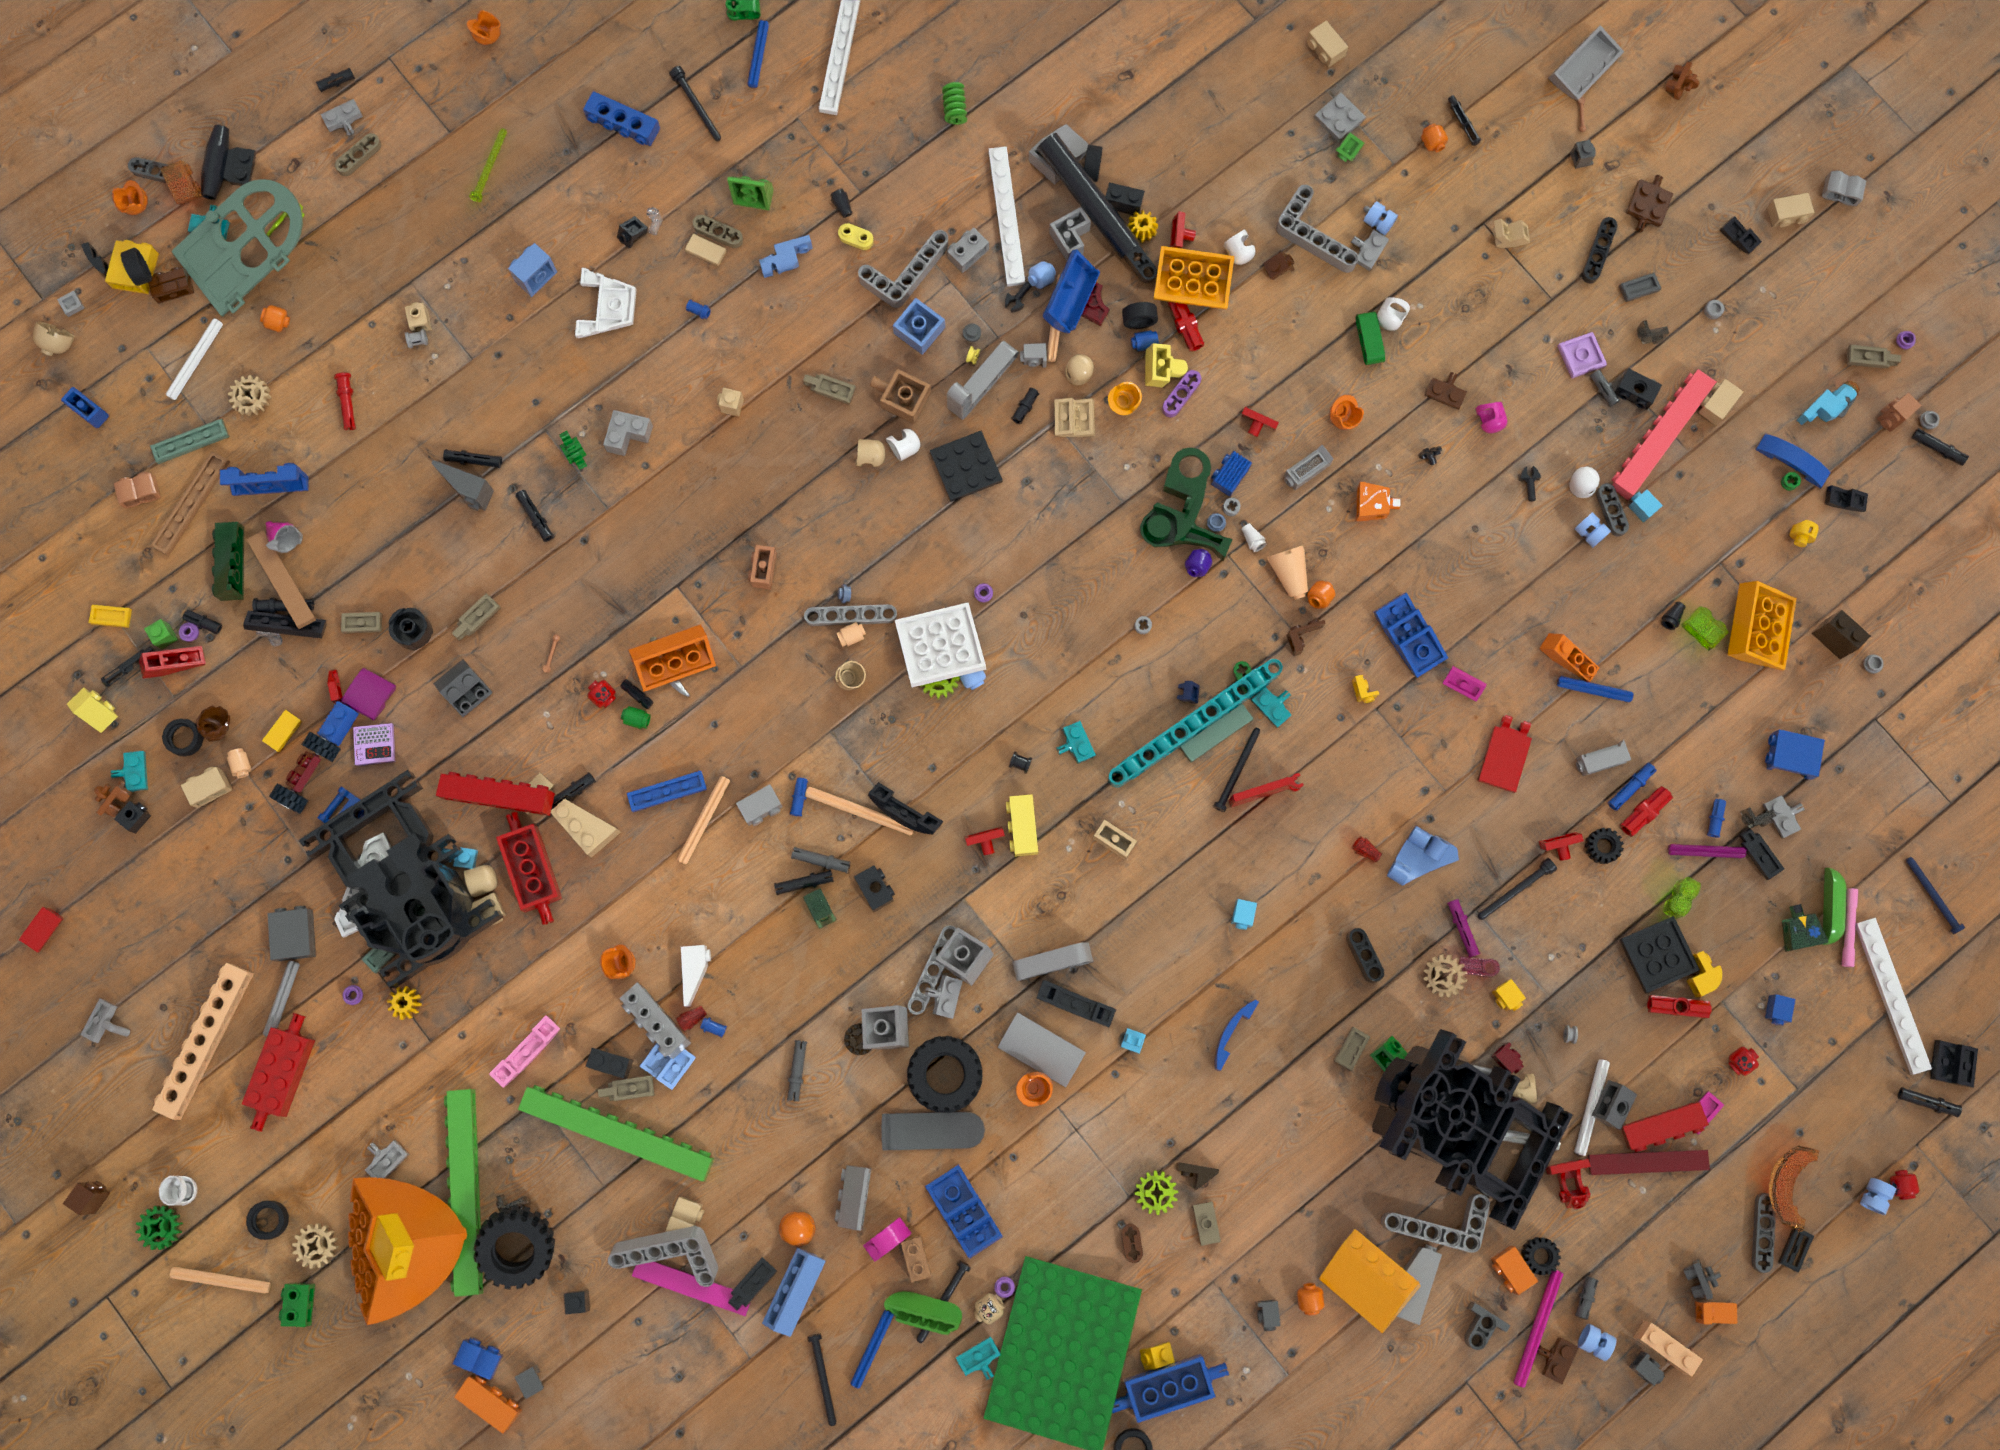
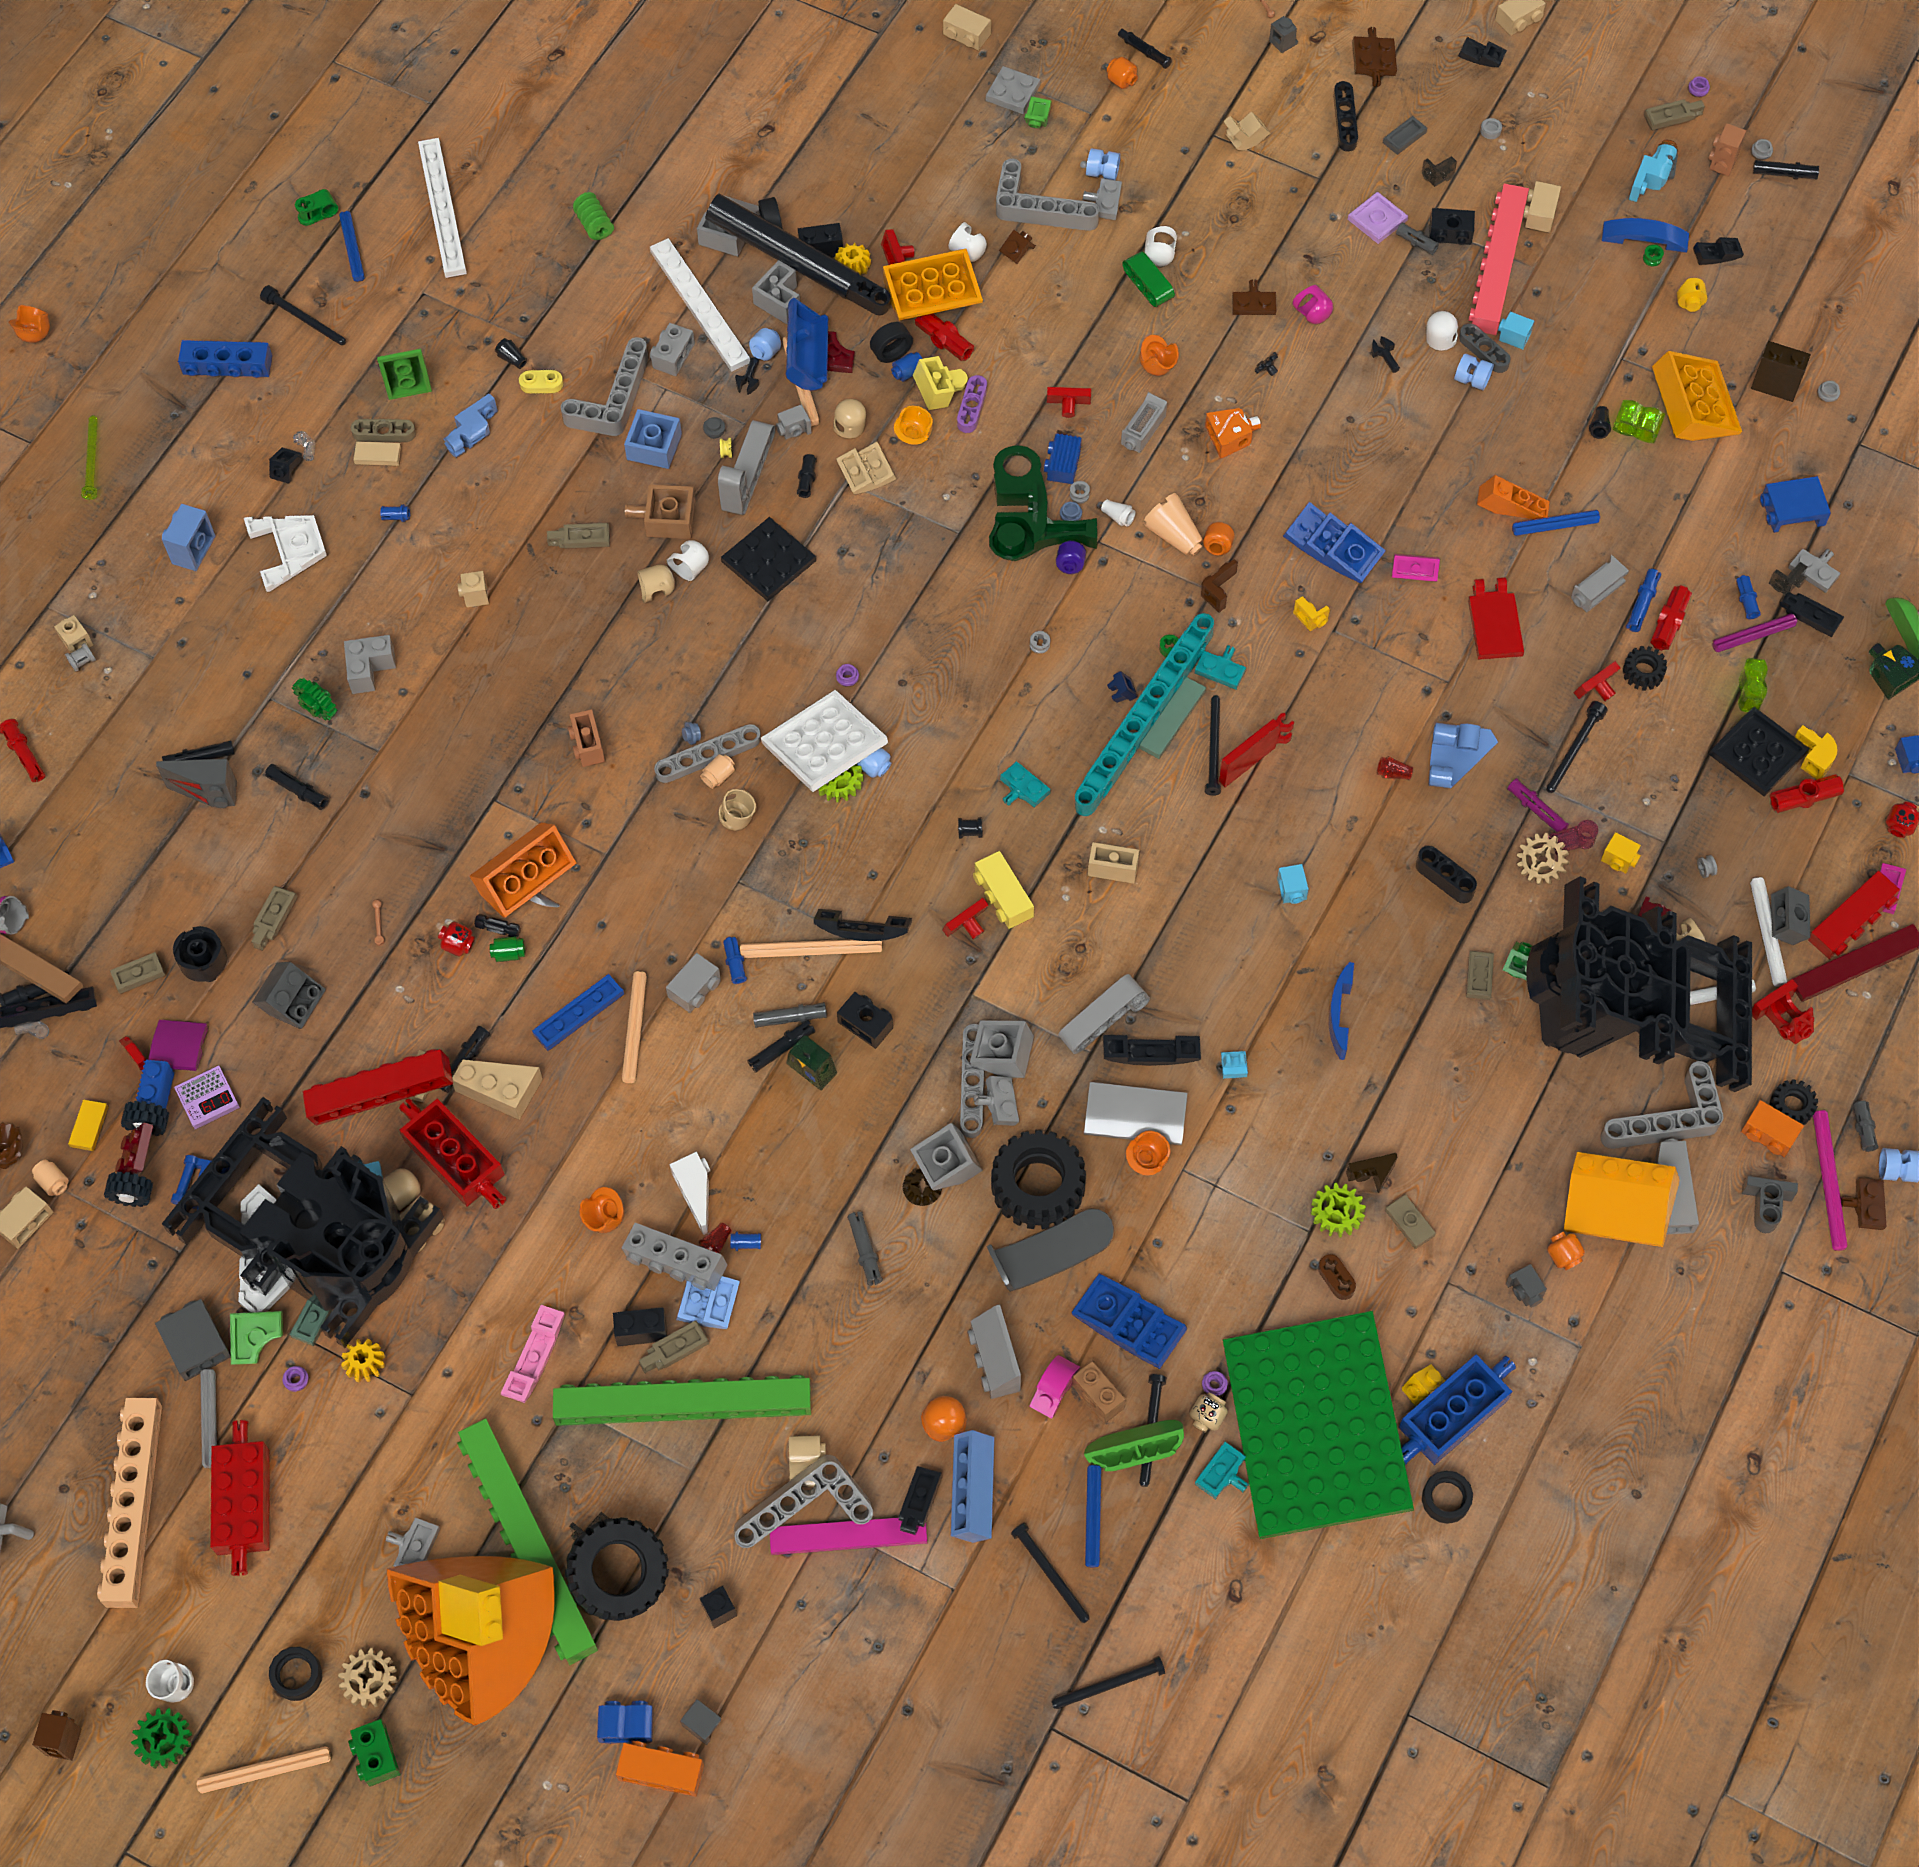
camera: 20 degrees left, 15 degrees down
(335, 947) = (251, 1333): none -> bright green tile

